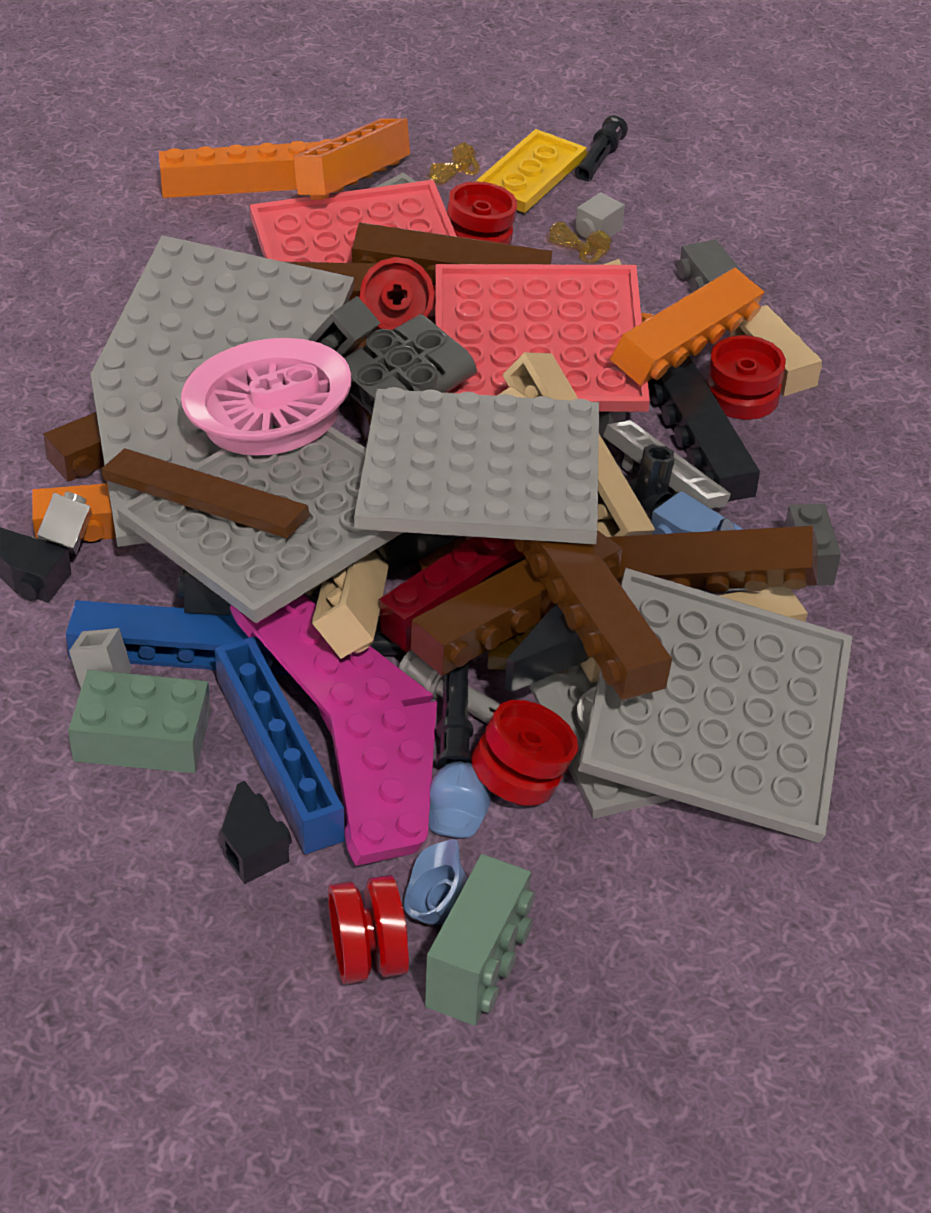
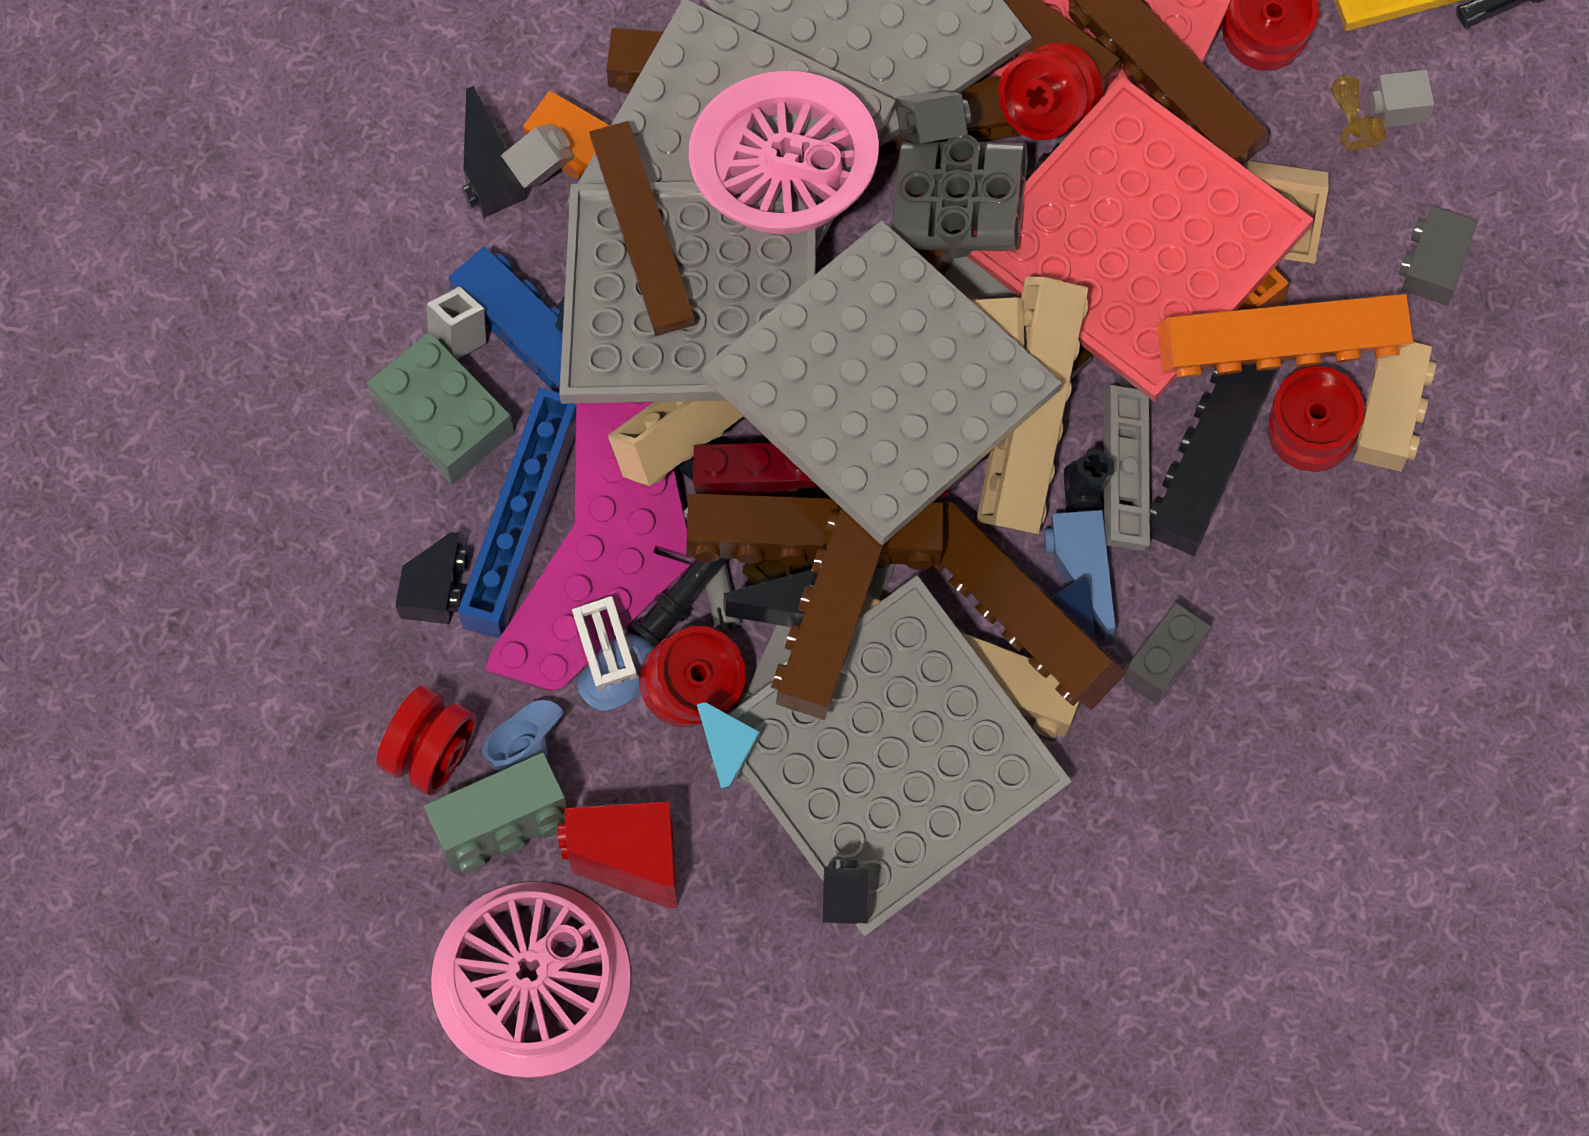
camera: 45 degrees right, 25 degrees up
(433, 778) = (615, 675): none -> white tile
(605, 893) = (623, 848): none -> red slope
(609, 754) = (728, 742): none -> medium azure slope
(610, 1107) = (469, 1017): none -> bright pink piece
(795, 795) = (845, 893): none -> black slope

